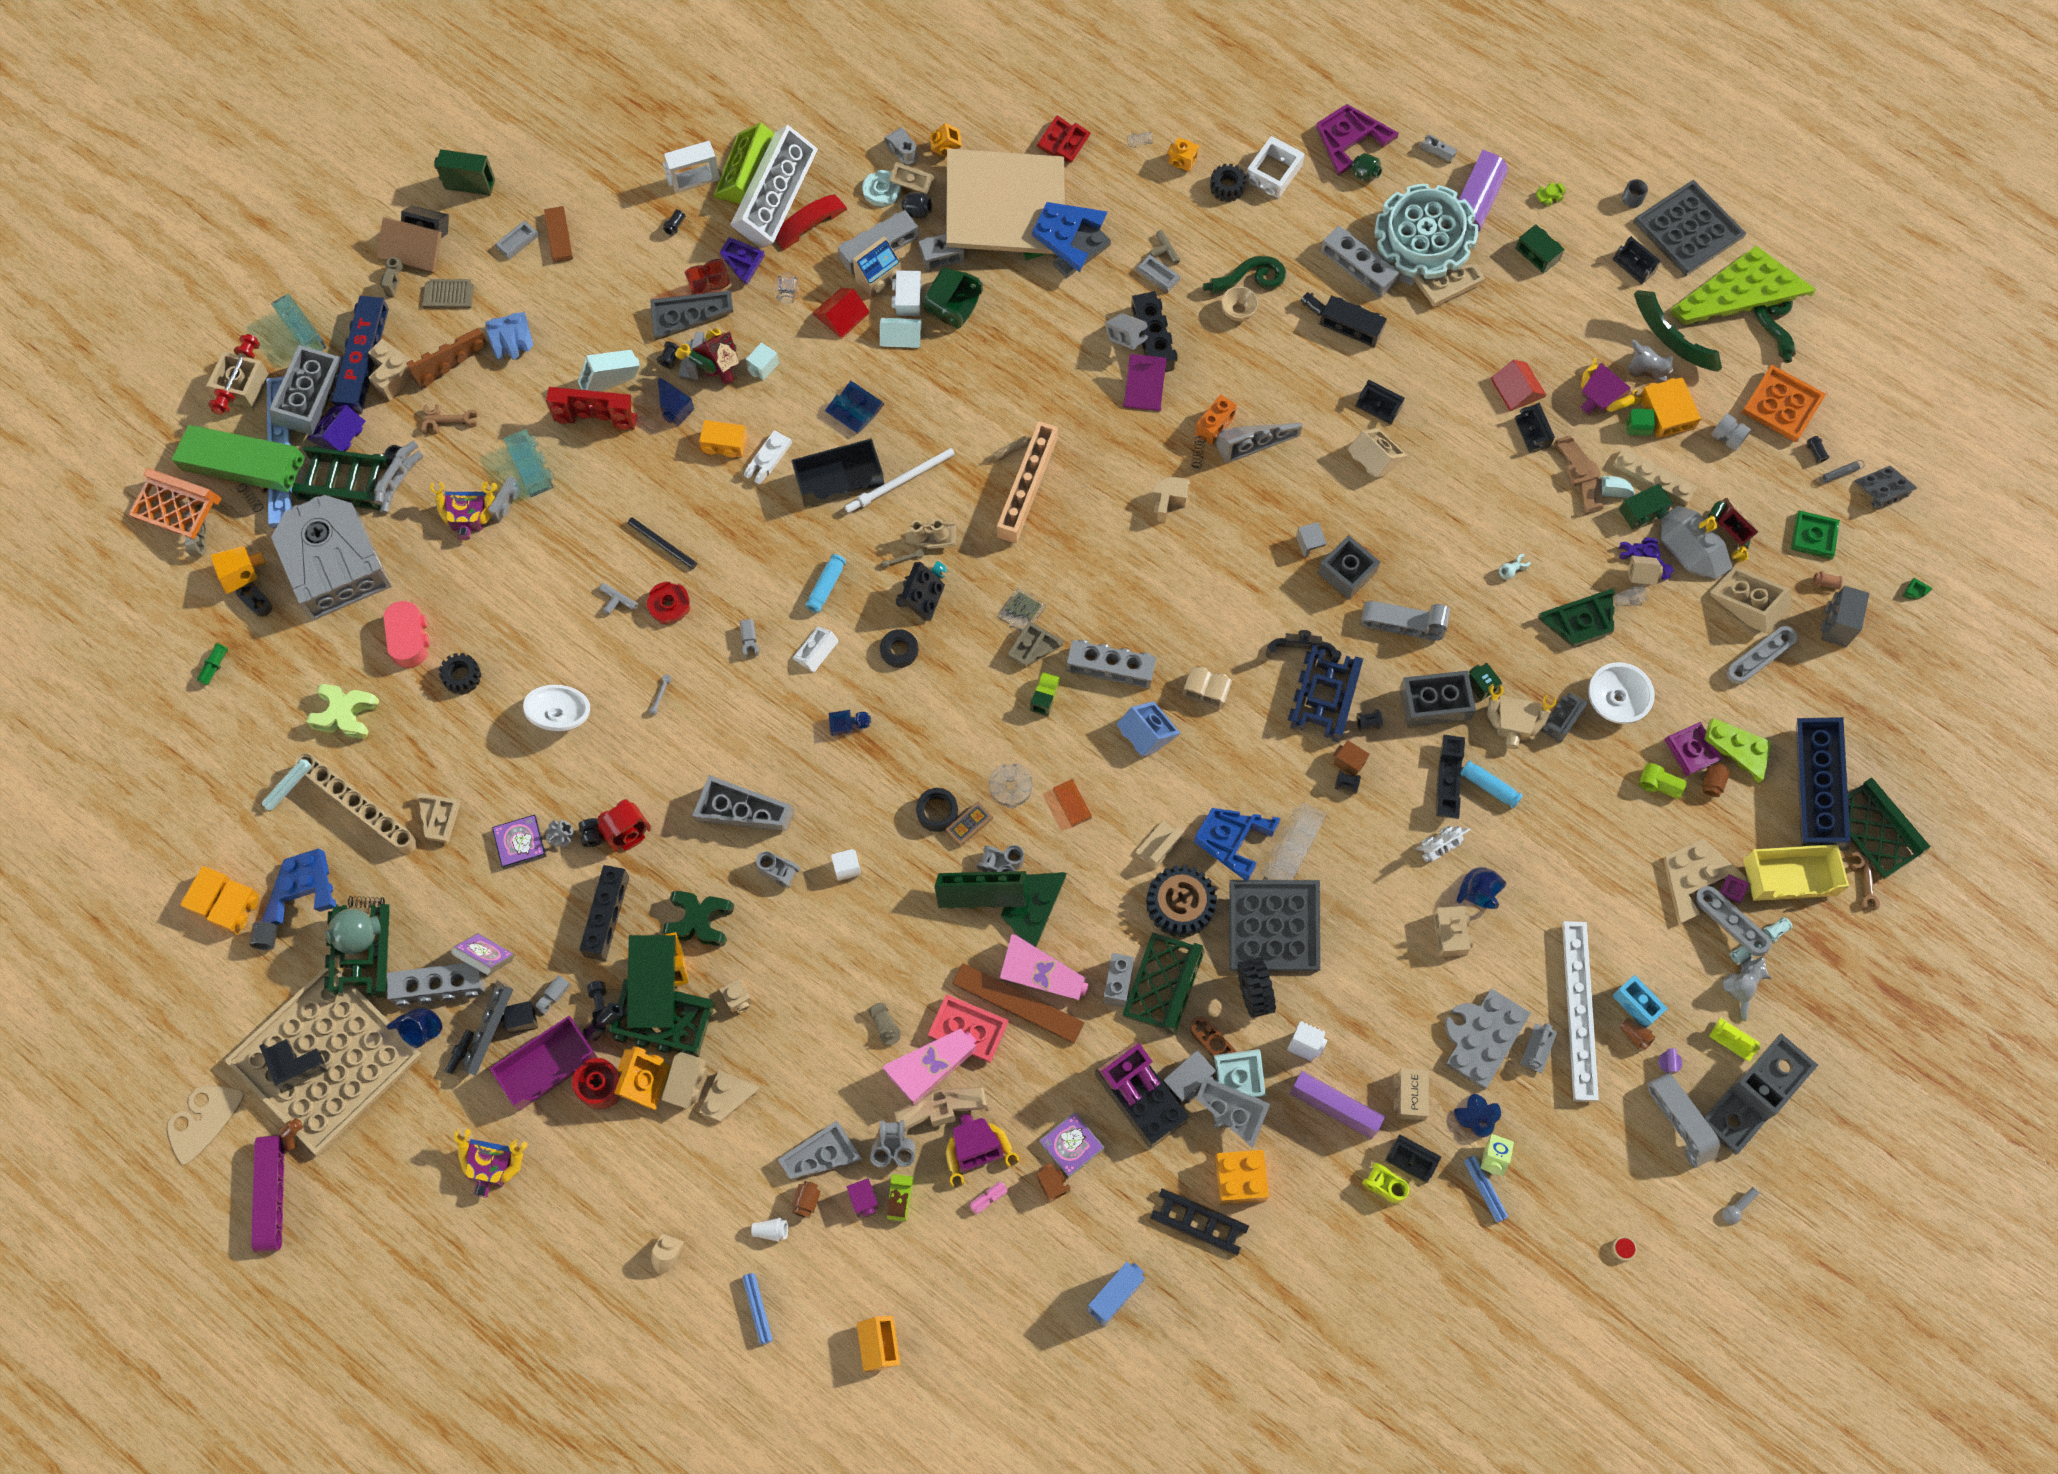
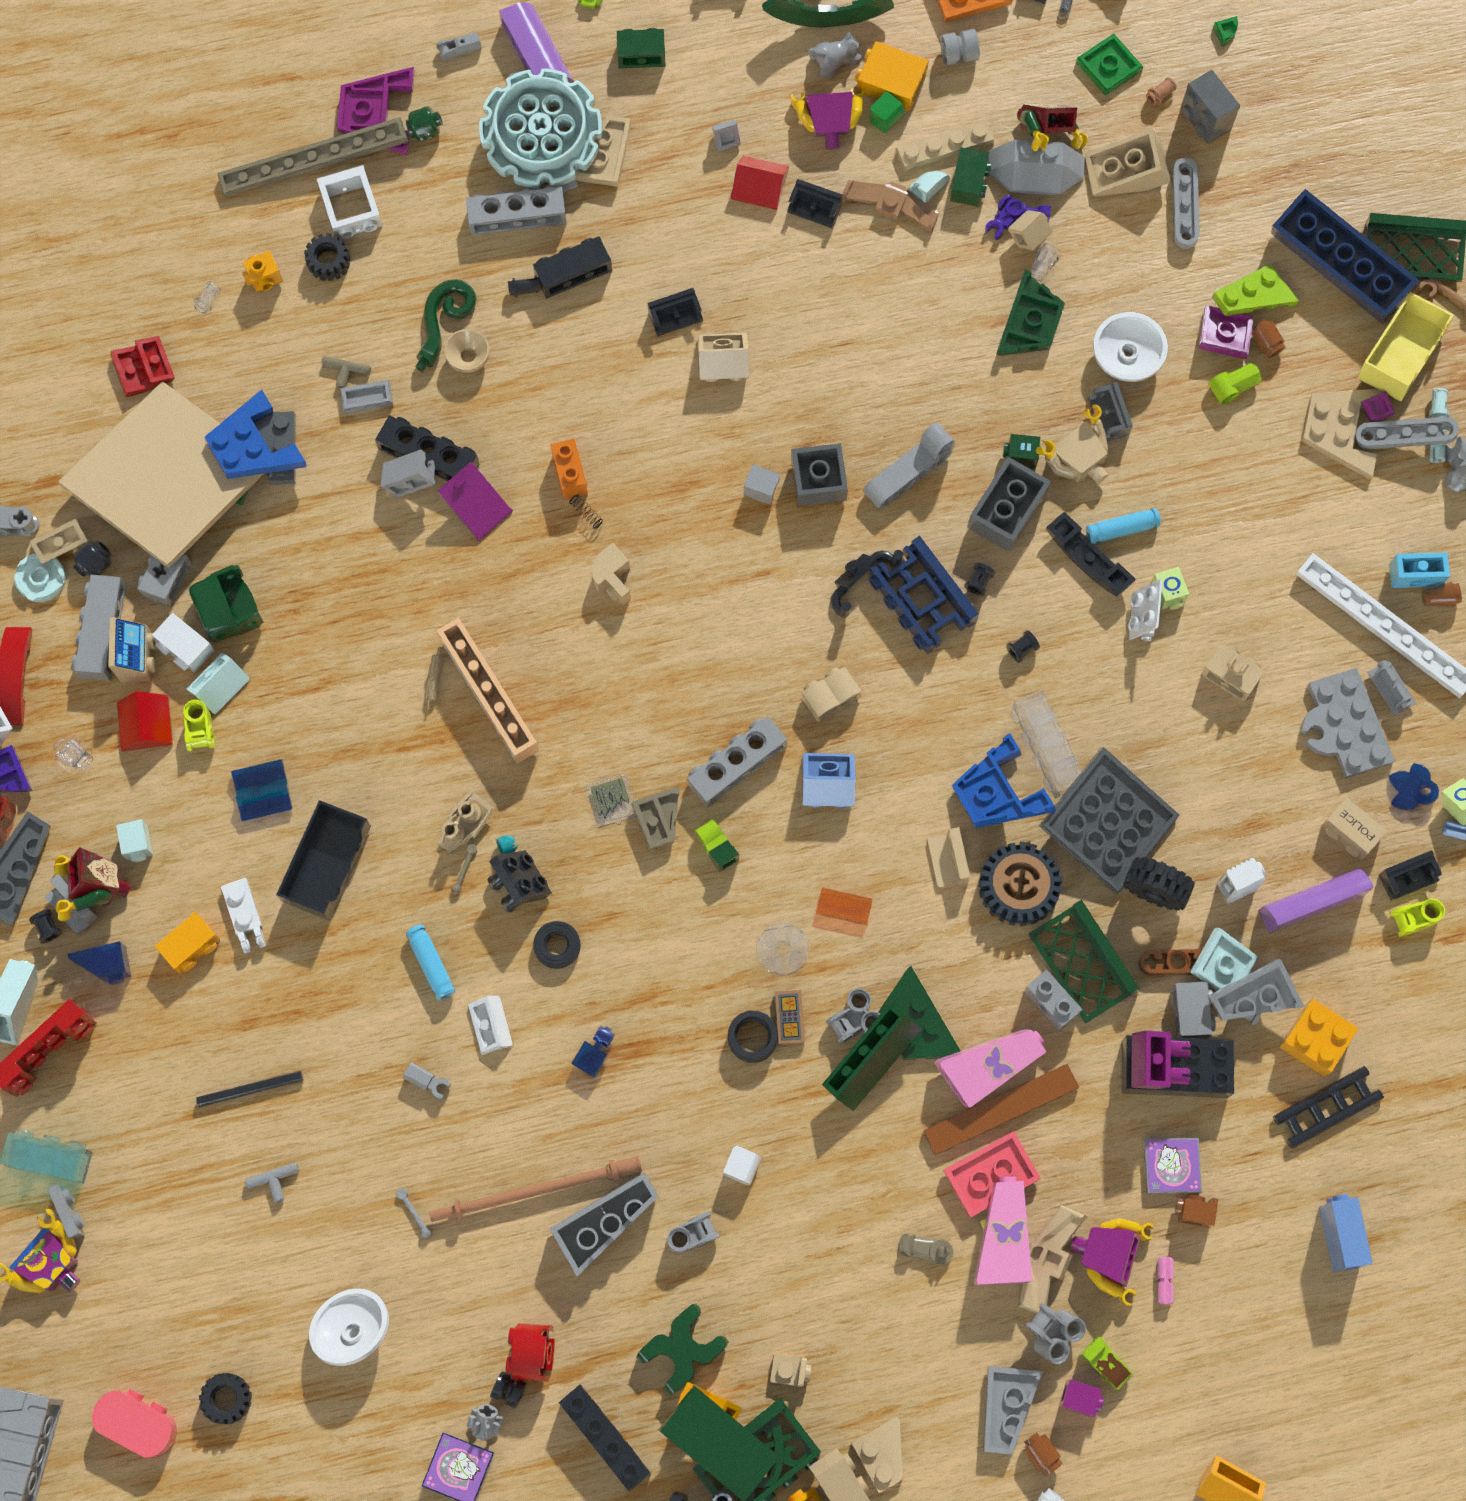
camera: 50 degrees left, 5 degrees up
(671, 613) = (332, 1142): red plate -> none
(779, 790) = (613, 1170): none -> nougat bar
(860, 344) = (198, 731): none -> neon yellow piece
(866, 498) = (371, 855): white bar -> none
(945, 137) = (44, 476): light orange brick -> none
(1247, 440) = (612, 460): light grey wedge -> none
(1285, 125) = (312, 157): none -> dark tan tile
(1350, 758) = (1003, 625): dark orange brick -> none
(1474, 846) = (1174, 589): none -> yellowish green brick
(1481, 887) = (1210, 614): clear blue piece -> none
(1508, 570) = (932, 342): light aqua arm -> none
(1529, 341) = (726, 135): none -> light grey tile

